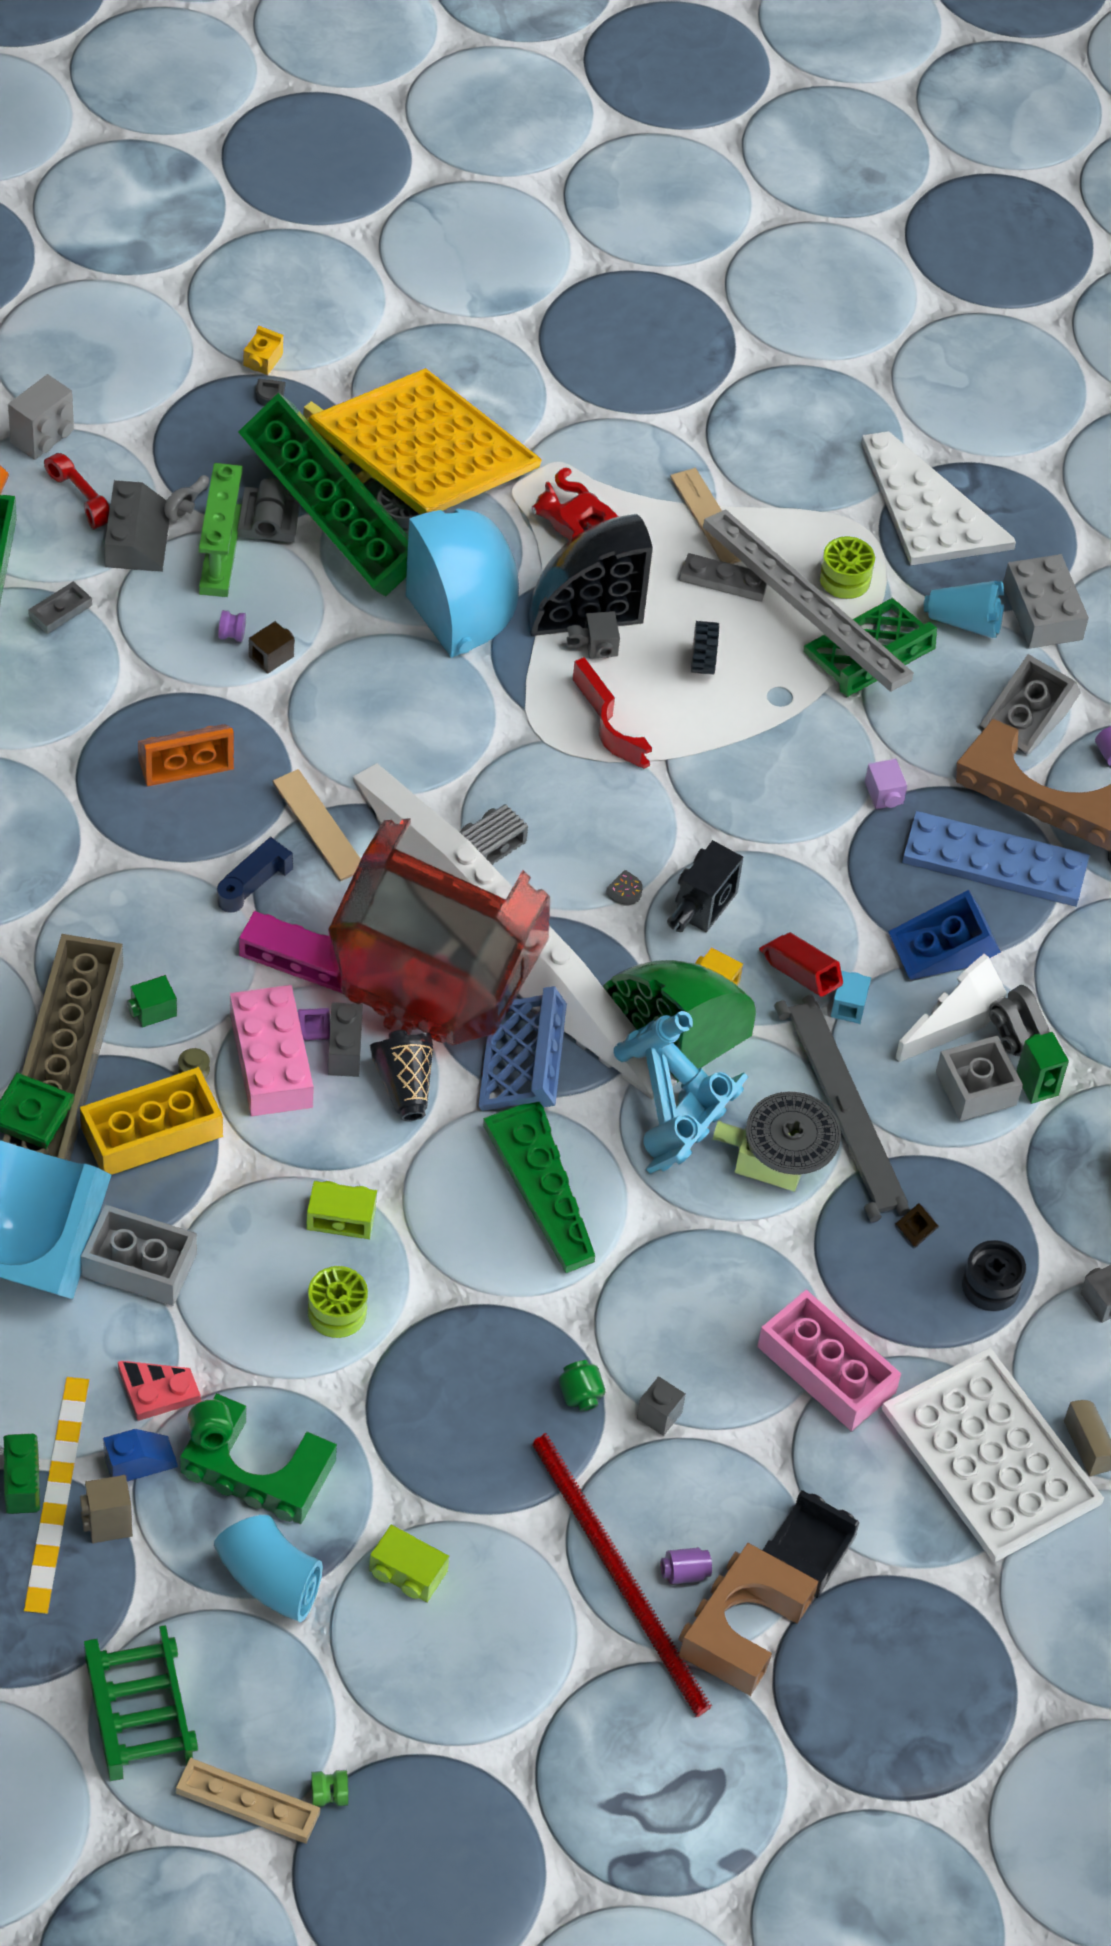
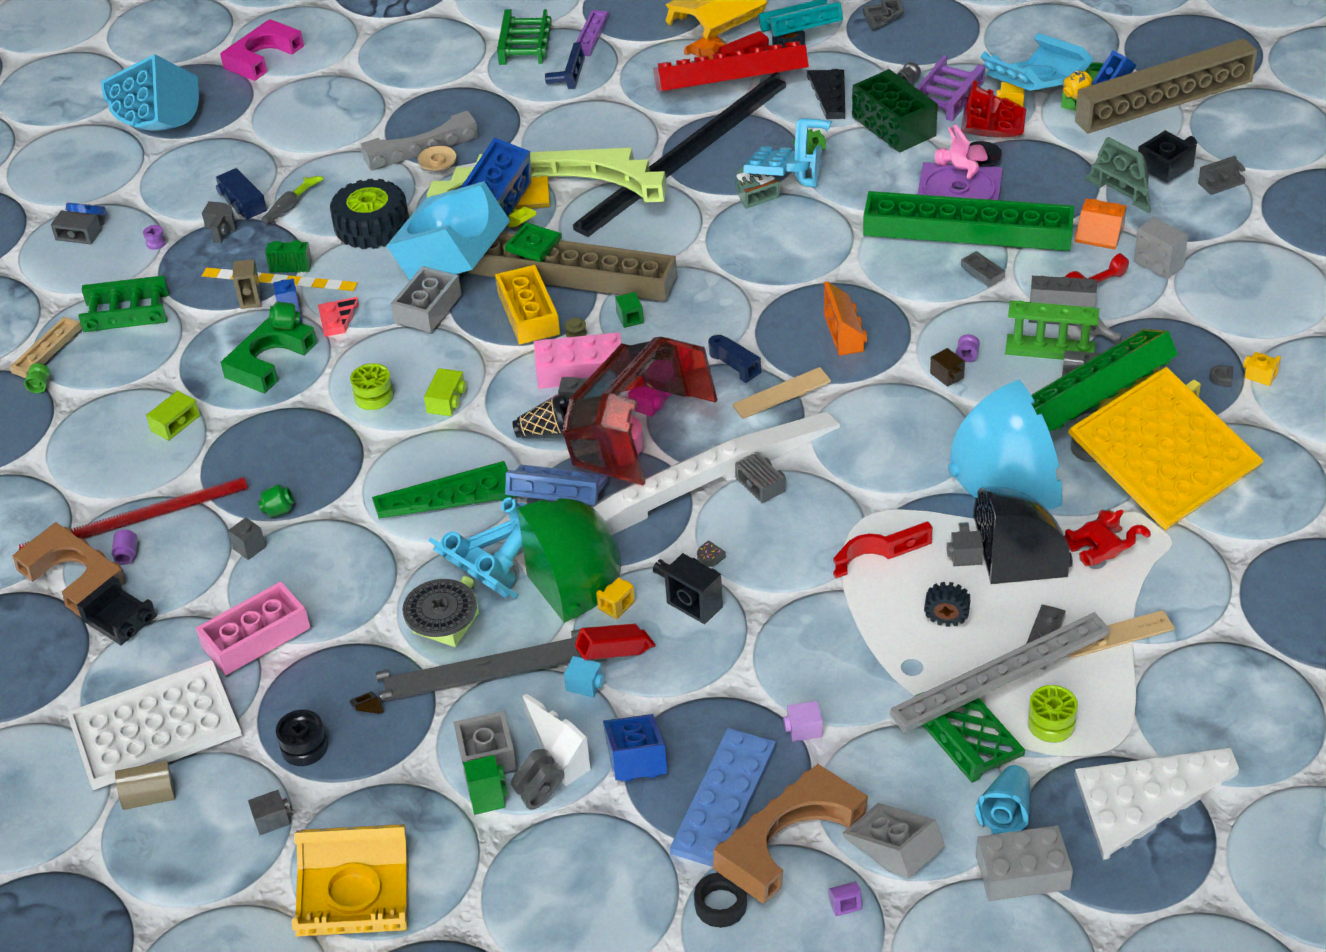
camera: 105 degrees right, 10 degrees down
(270, 1566) = (182, 351): medium azure brick -> none

